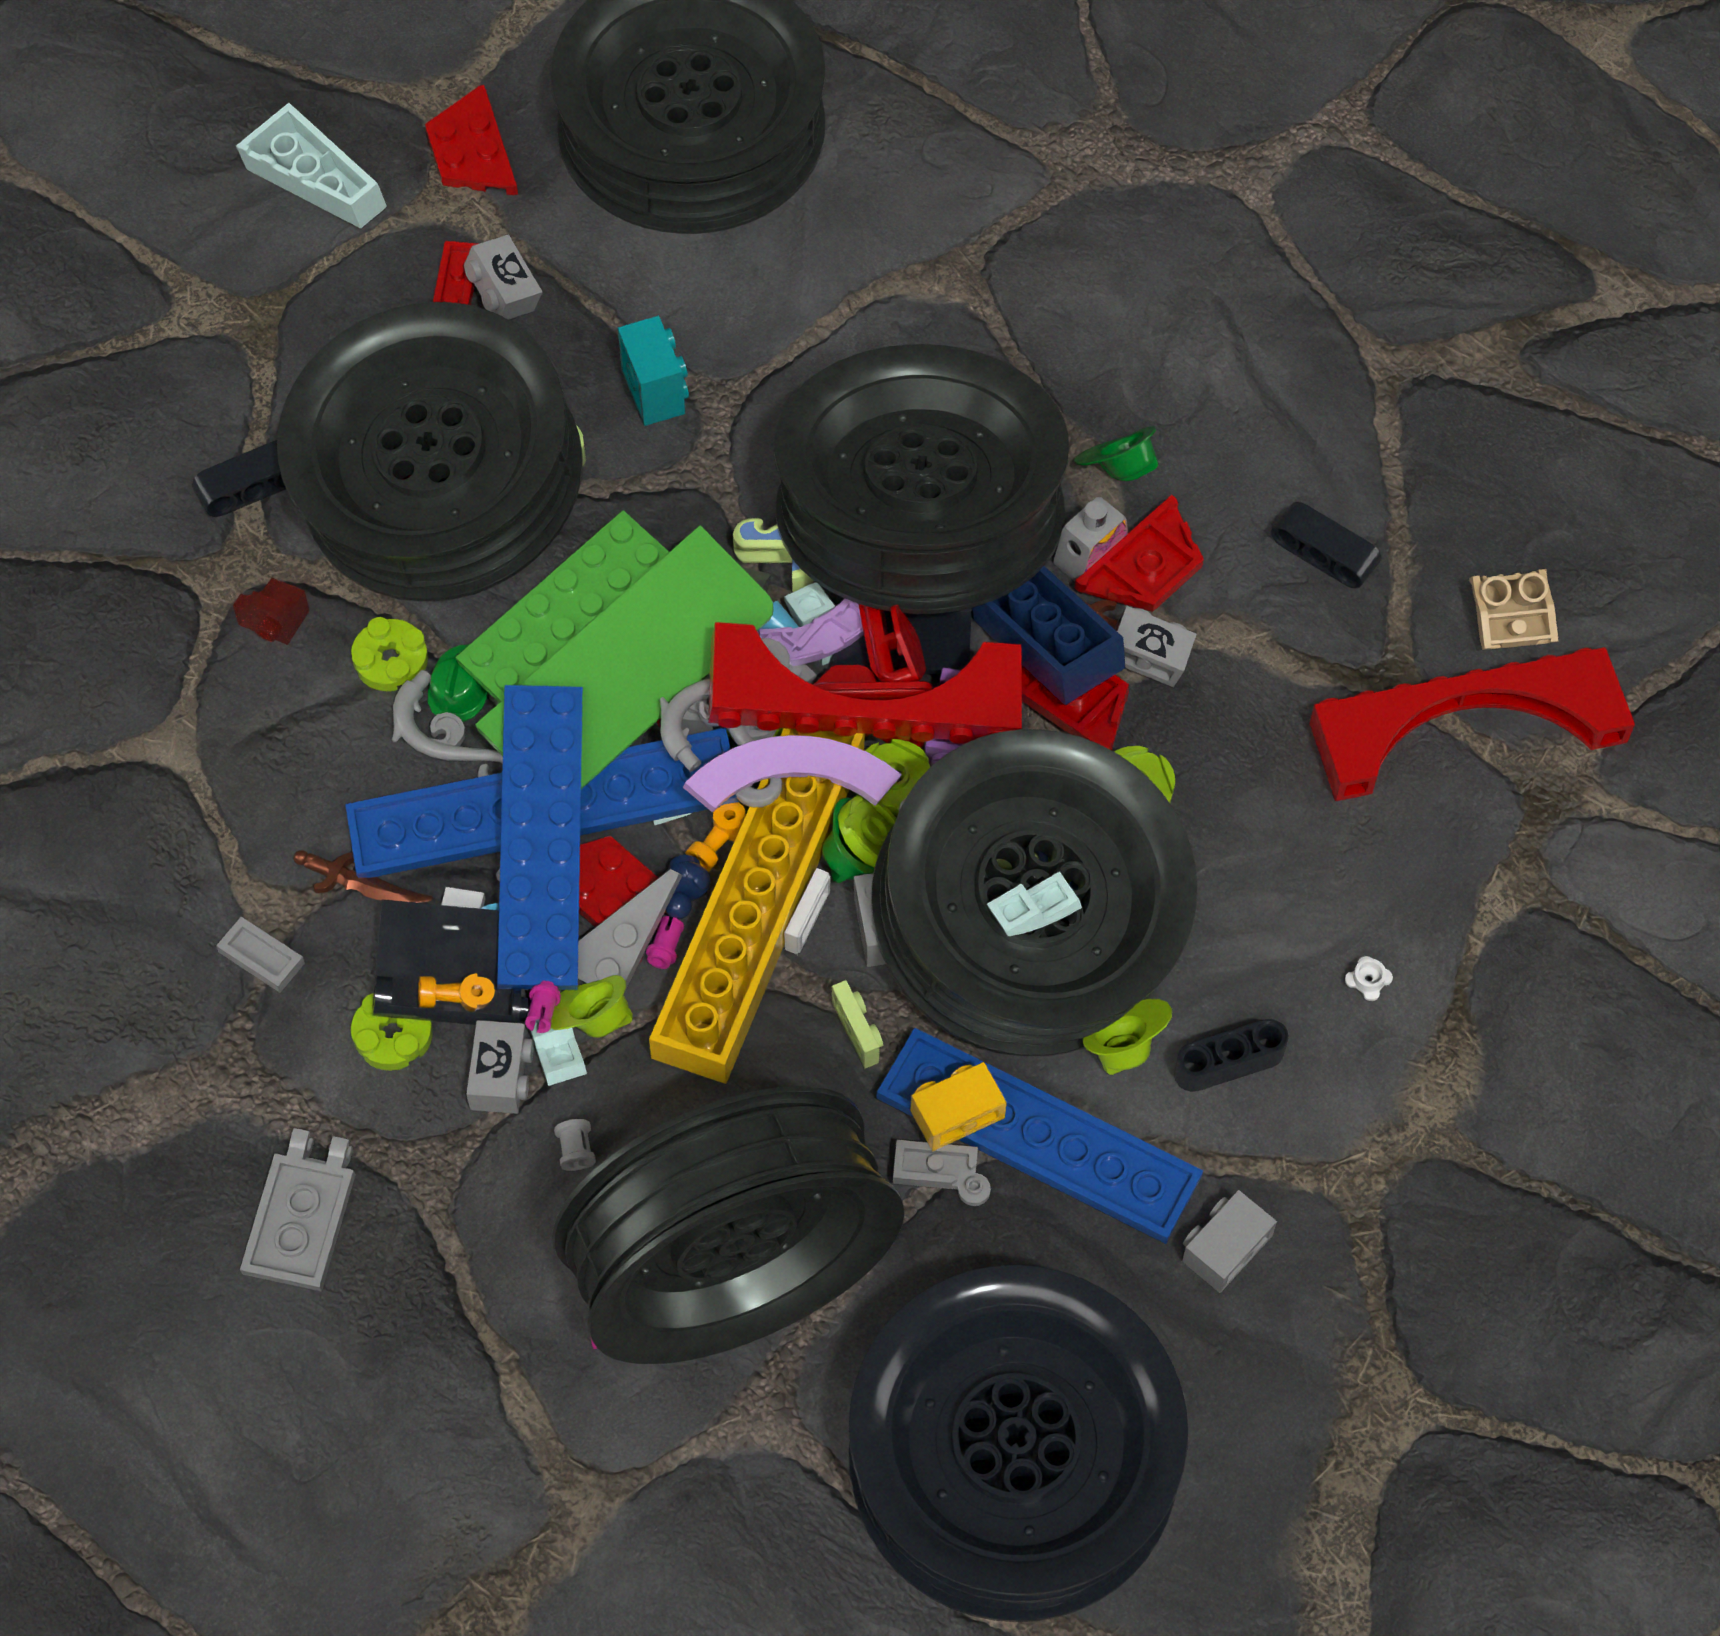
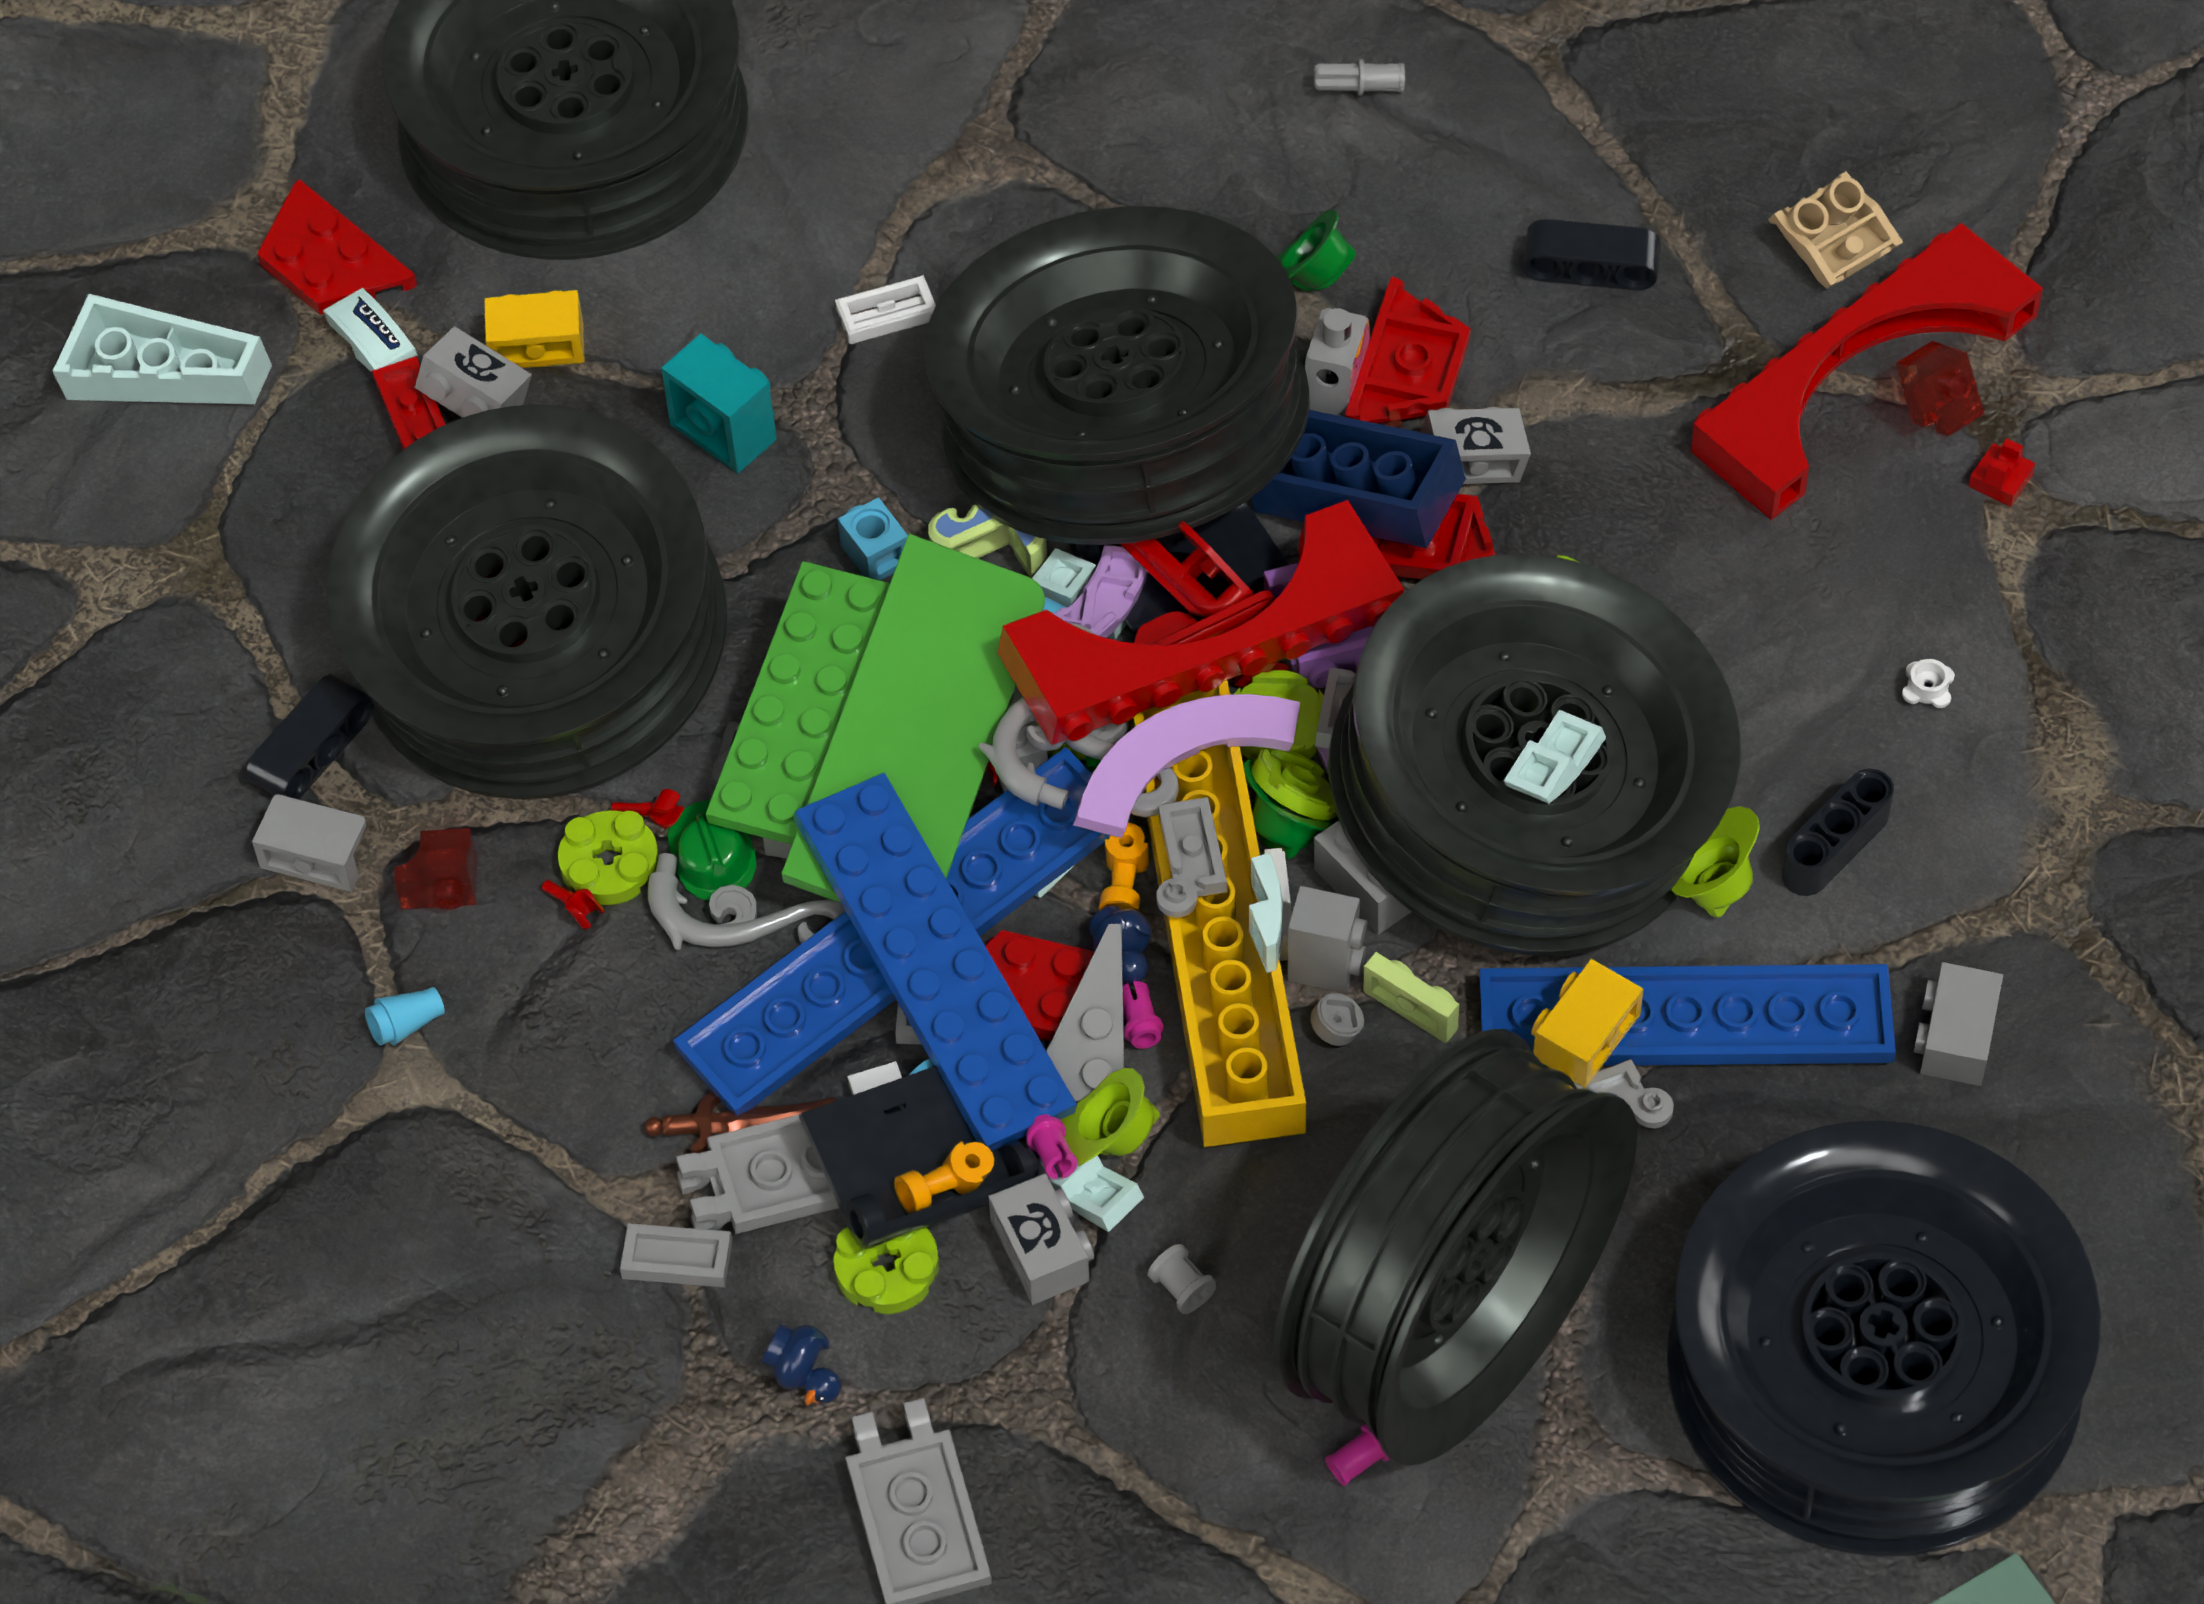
camera: 25 degrees left, 5 degrees down
(189, 698) = (401, 1015): none -> medium azure cone
(202, 548) = (309, 842): none -> light grey panel
(284, 1067) = (793, 1357): none -> dark blue animal
(341, 926) = (757, 1177): none -> light grey tile
(348, 677) = (577, 903): none -> red hand
(444, 640) = (662, 812): none -> red hand
(463, 211) = (369, 330): none -> light aqua slope
(569, 261) = (536, 328): none -> yellow brick
(698, 501) = (875, 556): none -> medium azure brick
(754, 848) = (1191, 855): none -> light grey hinge
(777, 920) = (1266, 915): none -> light aqua slope
(796, 1013) = (1337, 1019): none -> light grey tile
(812, 360) = (888, 315): none -> white tile
(816, 953) = (1325, 939): none -> light grey brick
(1244, 338) = (1359, 77): none -> light grey axle
(1512, 763) = (1940, 388): none -> clear red brick
(1524, 848) = (2003, 472): none -> red tile

